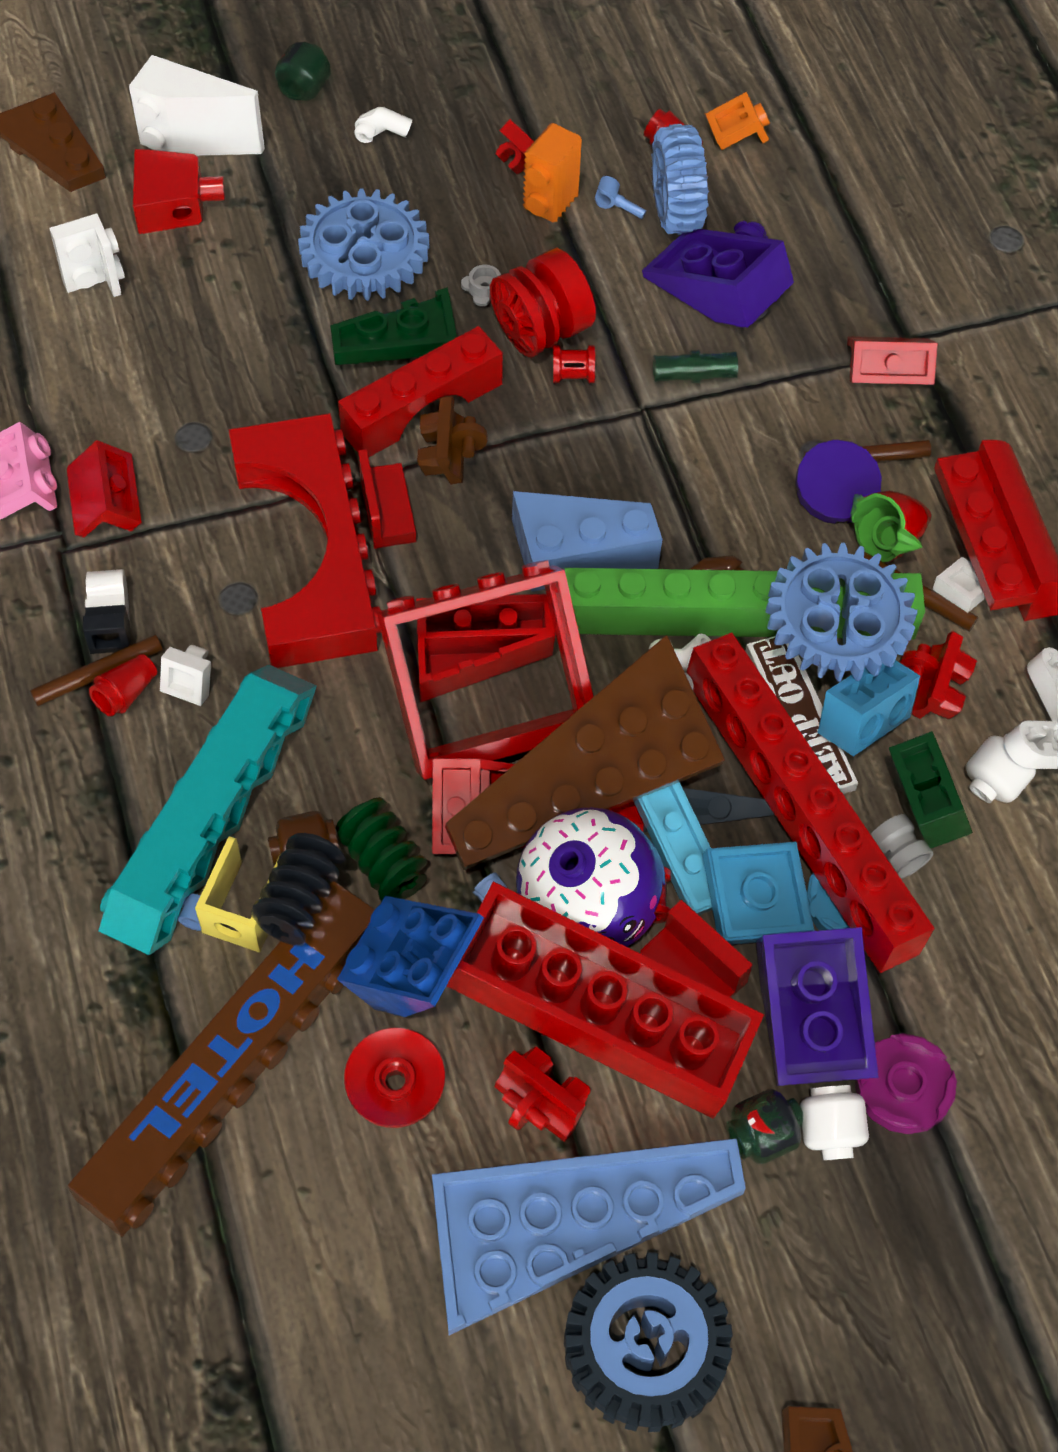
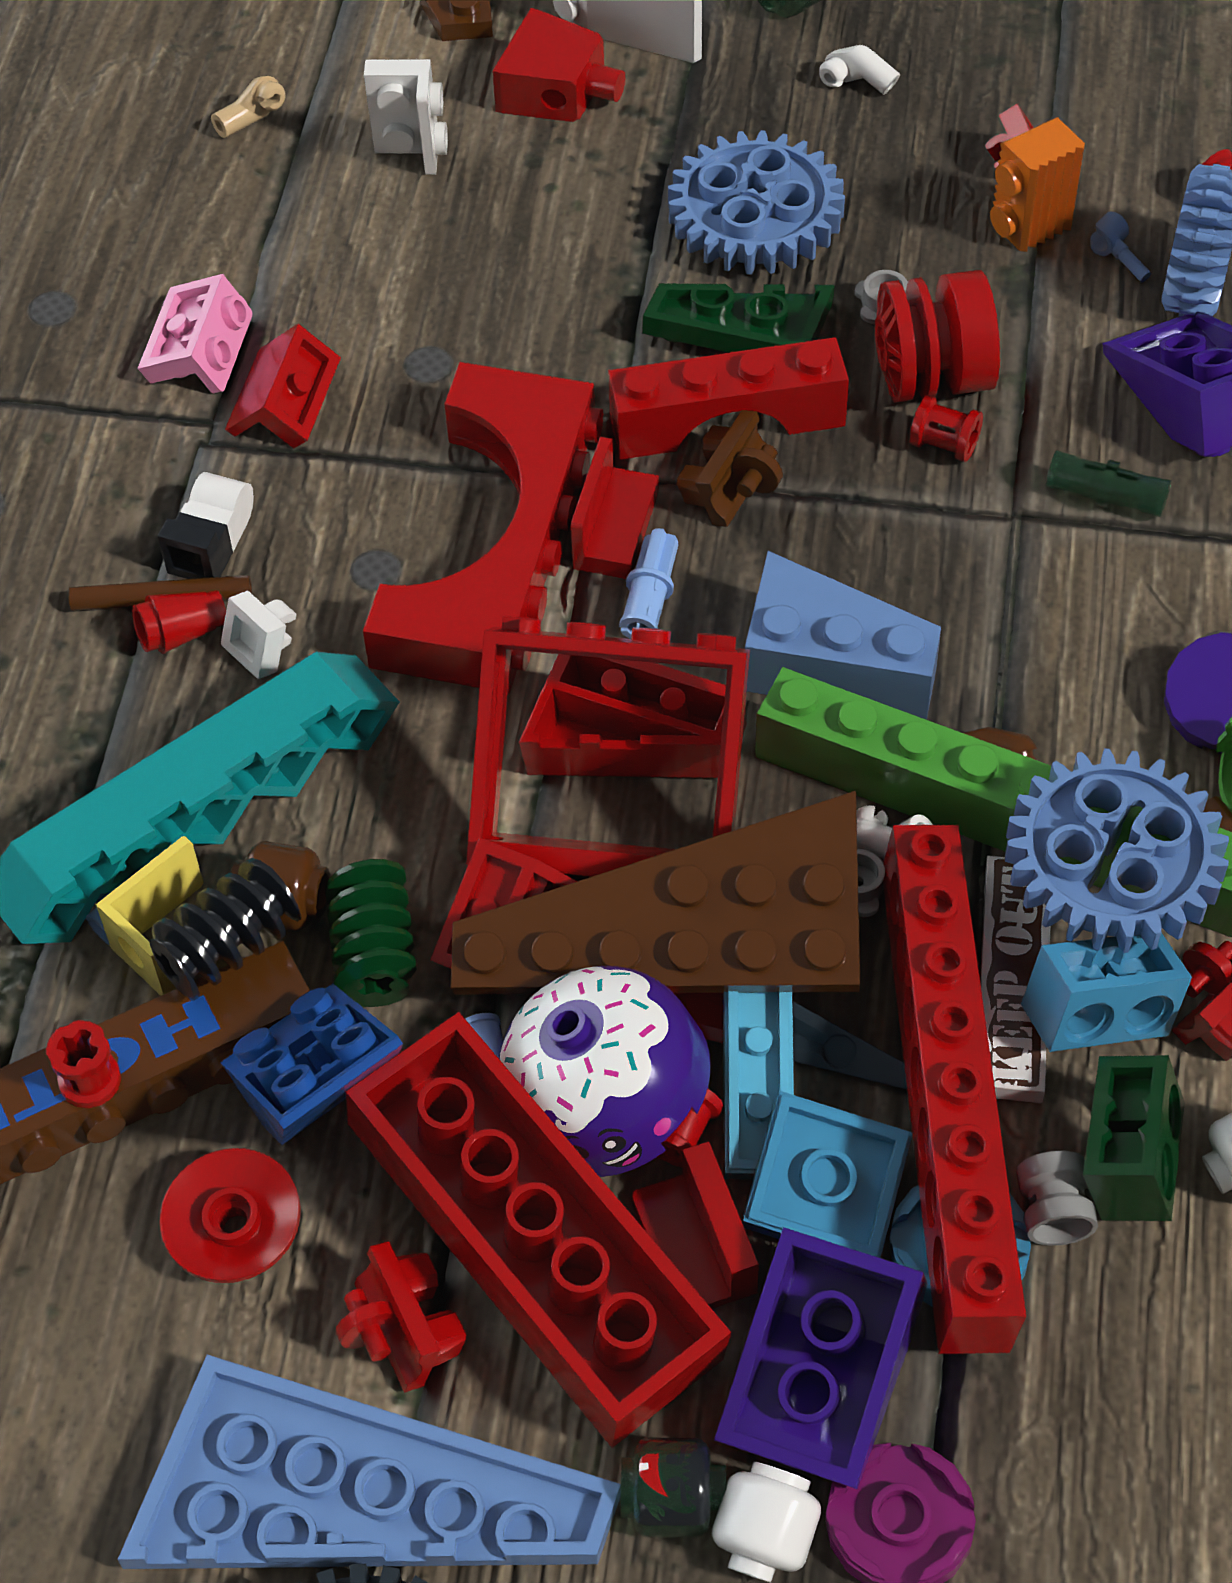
camera: 30 degrees right, 5 degrees down
(240, 1016) = (83, 1064): none -> red bush
(435, 542) = (649, 582): none -> light blue axle

